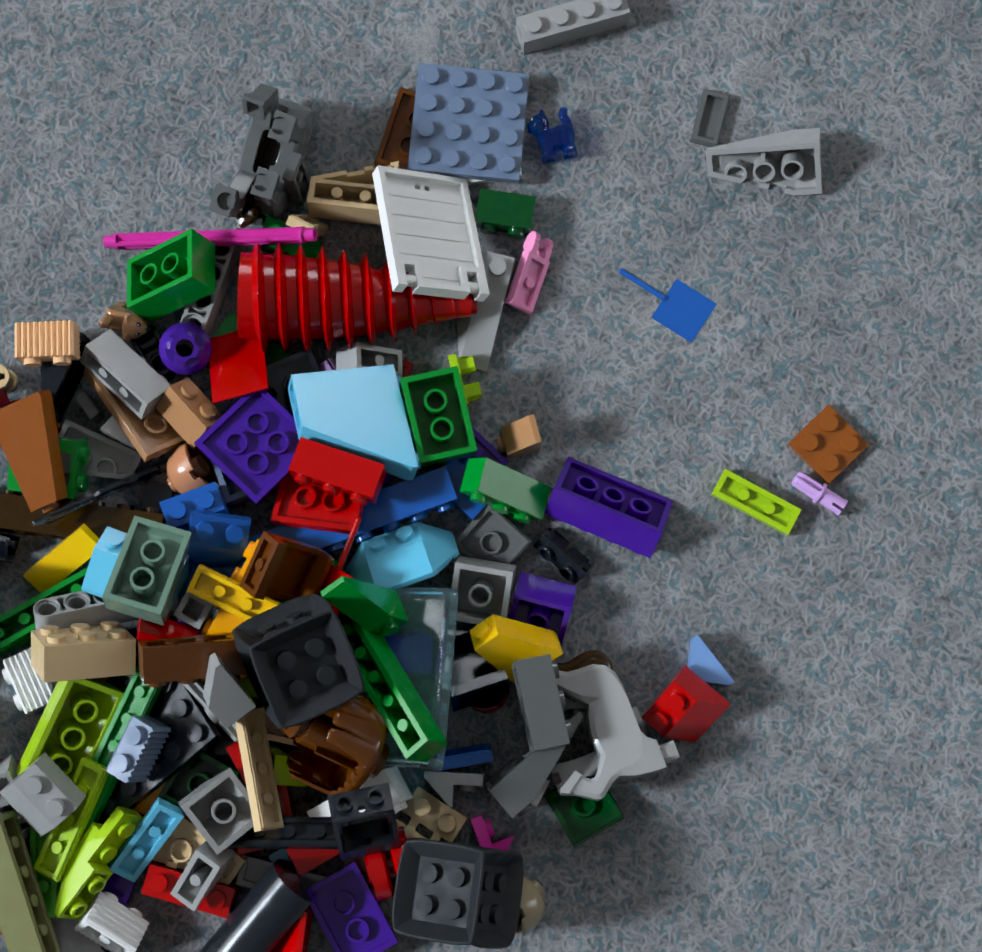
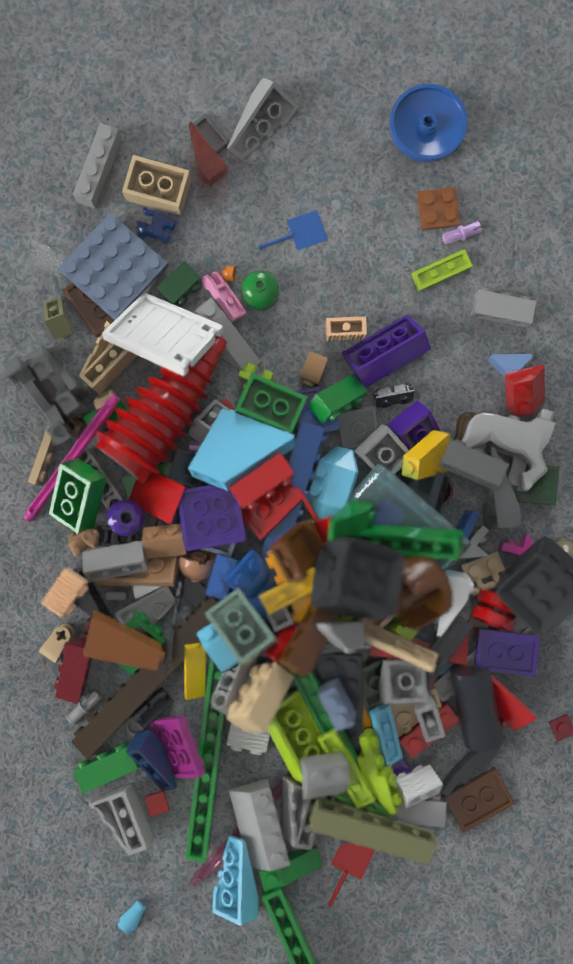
camera: 55 degrees left, 5 degrees up
(189, 208) = (43, 458): none -> tan plate
(361, 105) = (57, 318): none -> olive slope
(381, 831) = (468, 616): black window -> none
(561, 256) = (228, 272): none -> orange hinge
(569, 309) = (260, 290): none -> green cylinder
(597, 439) = (345, 328): none -> light nougat brick
(600, 102) = (157, 185): none -> tan brick
(674, 135) = (209, 164): none -> clear red slope
(766, 608) = (503, 308): none -> light grey brick
(917, 356) = (428, 123): none -> blue dish

